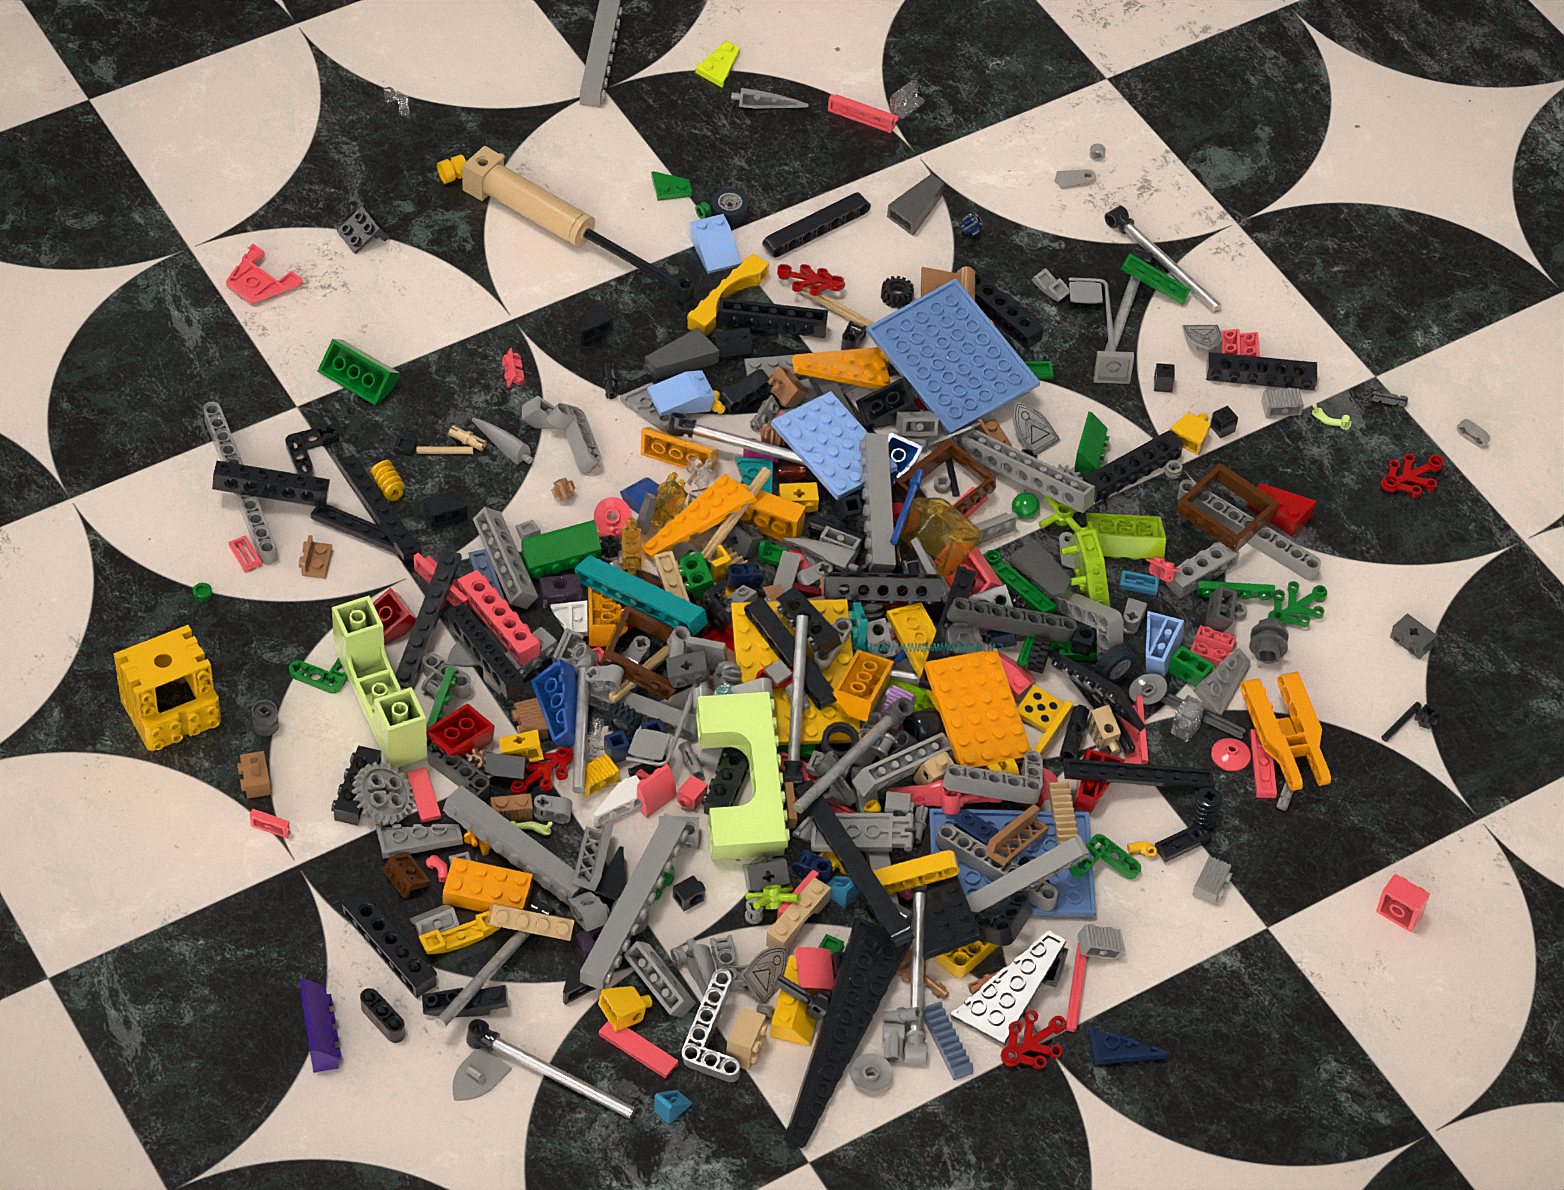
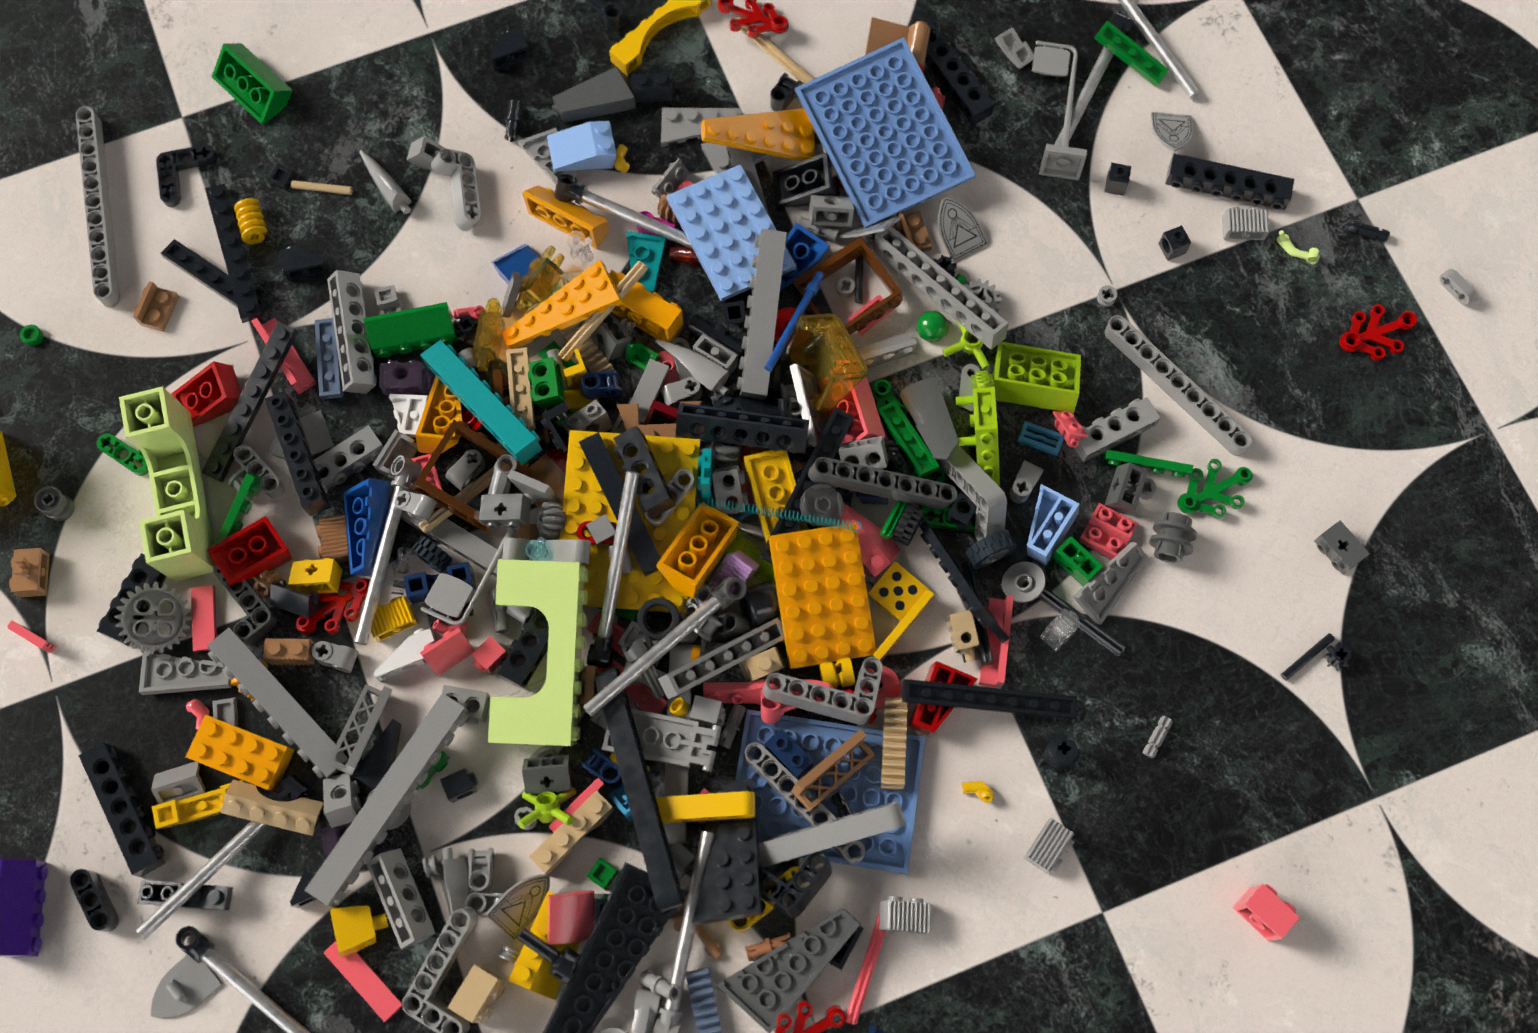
camera: 15 degrees right, 20 degrees up
(245, 567) = (90, 306): coral tile -> none
(271, 484) = (118, 216): black brick -> none
(405, 874) = (161, 719): reddish brown bracket -> none
(467, 438) = (347, 176): tan pin -> none
(499, 617) = (337, 457): coral brick -> none
(513, 366) = (415, 87): coral hinge -> none
(540, 828) = (319, 677): yellowish green piece -> none
(563, 489) = (432, 251): medium nougat gear -> none
(606, 508) = (470, 285): coral dish -> none
(745, 391) = (654, 149): black beam -> none
(772, 317) = (701, 61): black brick -> none
(787, 387) = (699, 155): medium nougat brick -> none
(801, 493) = (692, 284): yellow brick -> none
(897, 299) = (840, 49): black tyre -> none
(1041, 369) = (979, 152): green tile -> none
(1074, 732) = (924, 641): black piece -> none
(1091, 446) = (1018, 262): green slope -> none
(1104, 852) = (932, 794): green beam -> none
(1134, 465) = (1104, 263): black brick -> none
(1182, 842) = (1024, 789): black plate -> none
(1192, 431) = (1135, 251): yellow torso -> none
(1228, 760) = (1100, 685): coral dish -> none
(1240, 344) = (1211, 144): coral slope -> none
(1242, 488) = (1179, 338): reddish brown window -> none
(1263, 769) = (1137, 693): coral tile -> none
(1279, 735) = (1161, 661): light orange beam -> none
(1292, 509) = (1219, 361): red wedge -> none

